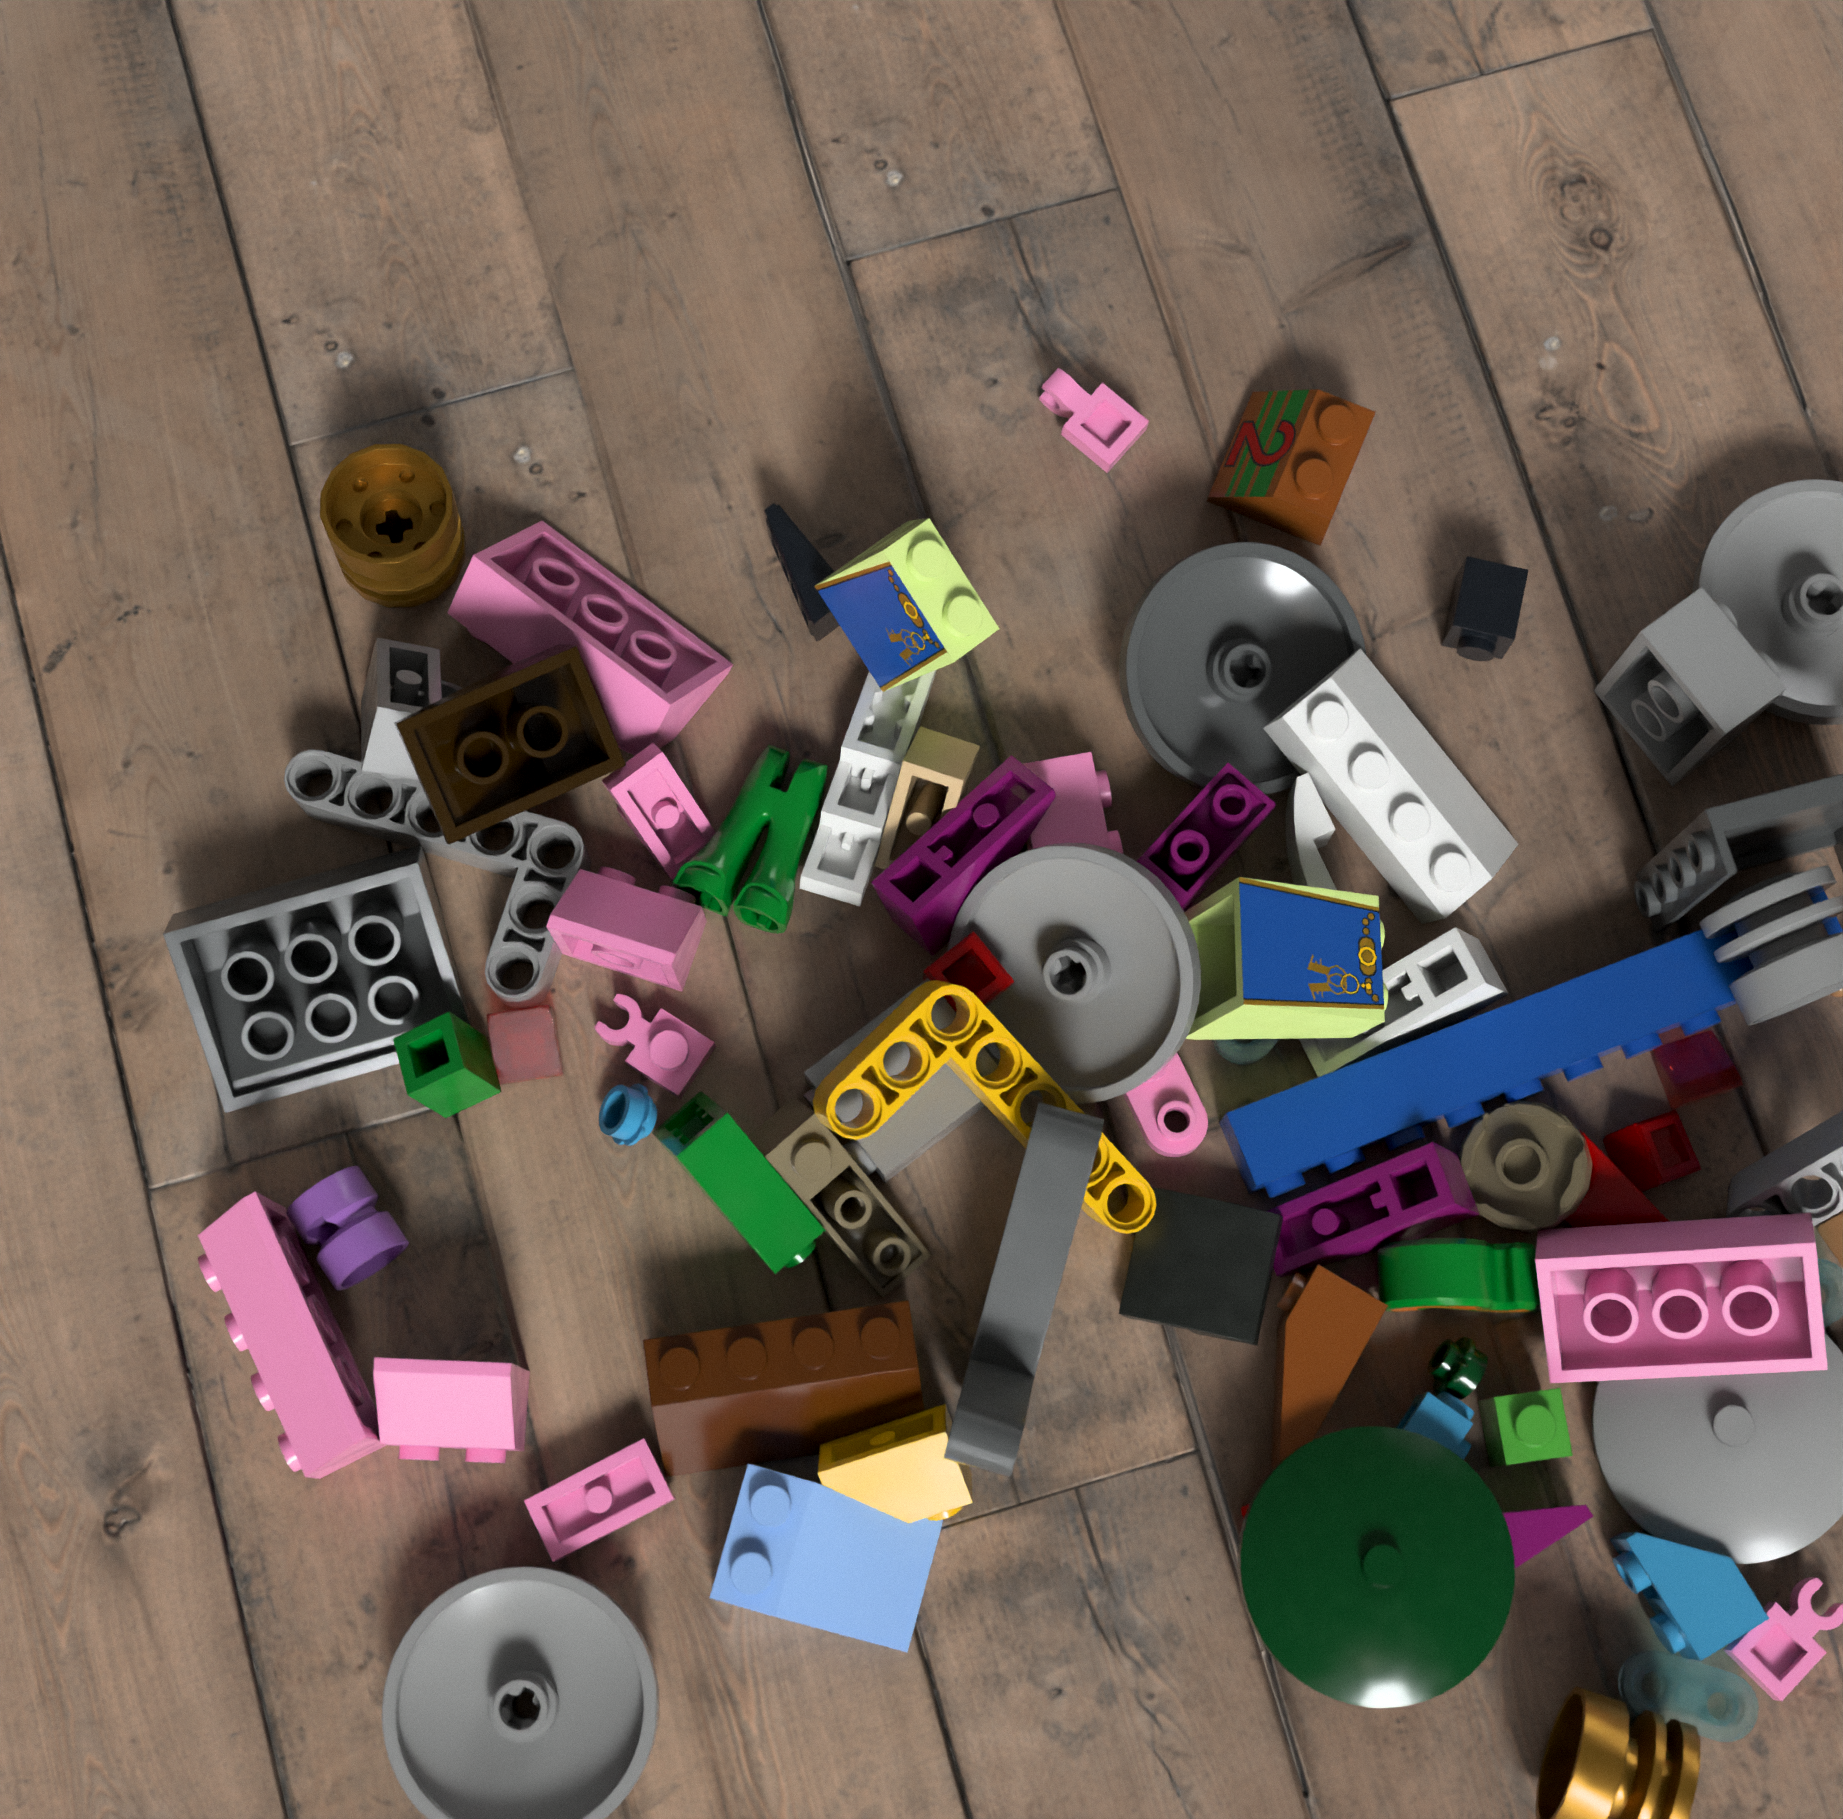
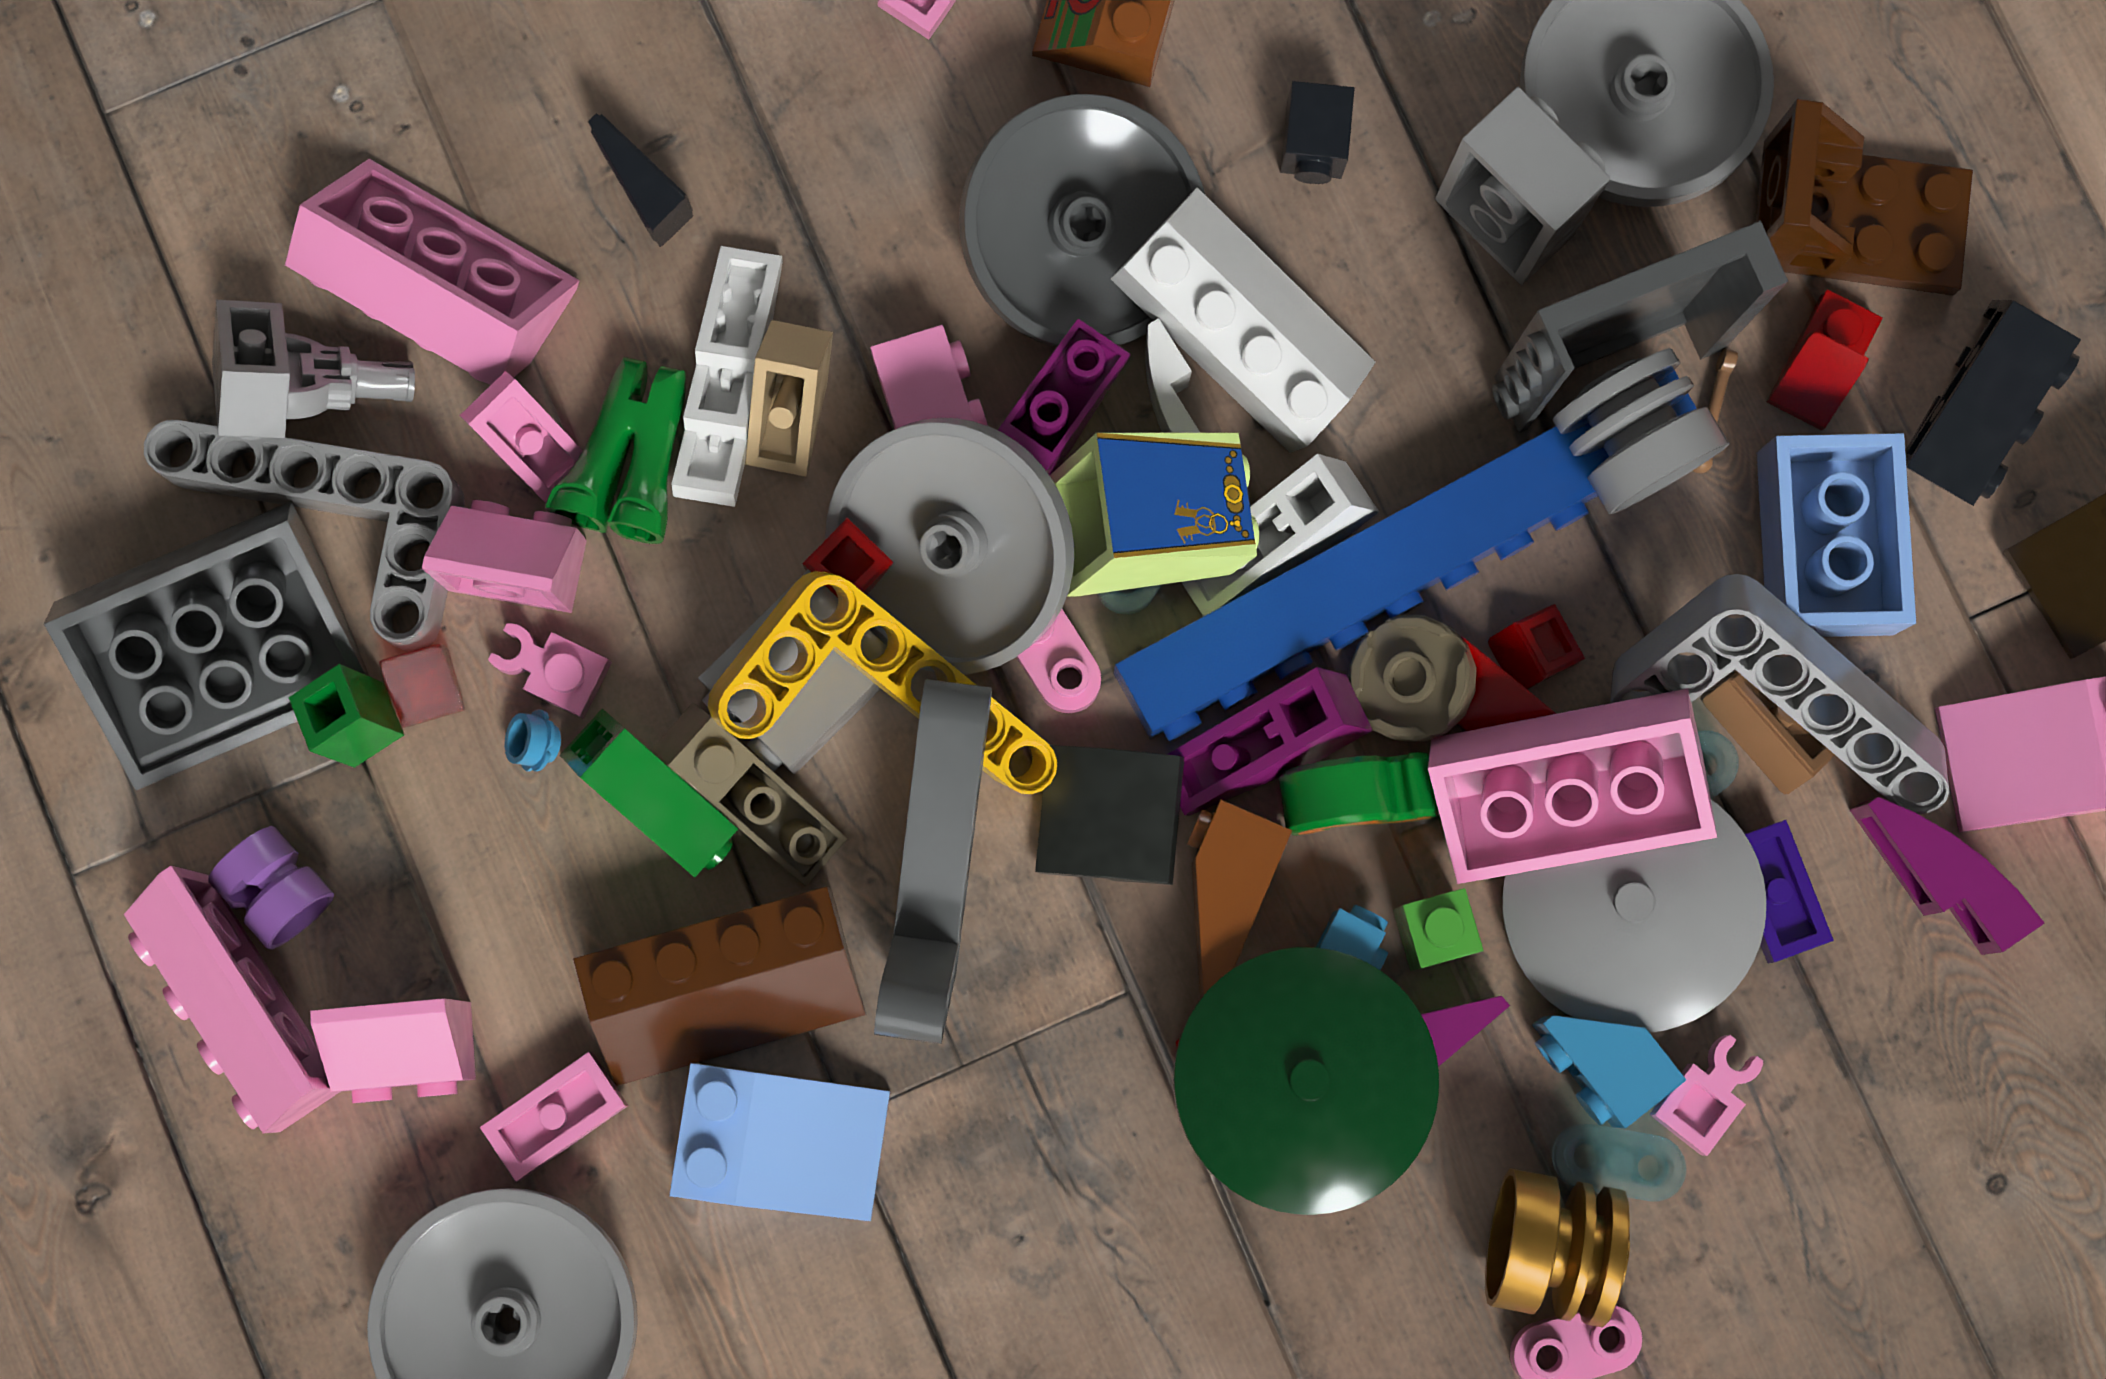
camera: 10 degrees left, 5 degrees up
(386, 495) = (196, 159): pearl gold wheel -> none
(510, 742) = (360, 389): dark brown slope -> none
(900, 1468) = (838, 1049): yellow slope -> none
(907, 605) = (739, 202): slope -> none
(944, 865) = (809, 457): magenta slope -> none
(1457, 1367) = (1367, 880): dark green plate -> none
(1695, 1069) = (1569, 562): slope -> none

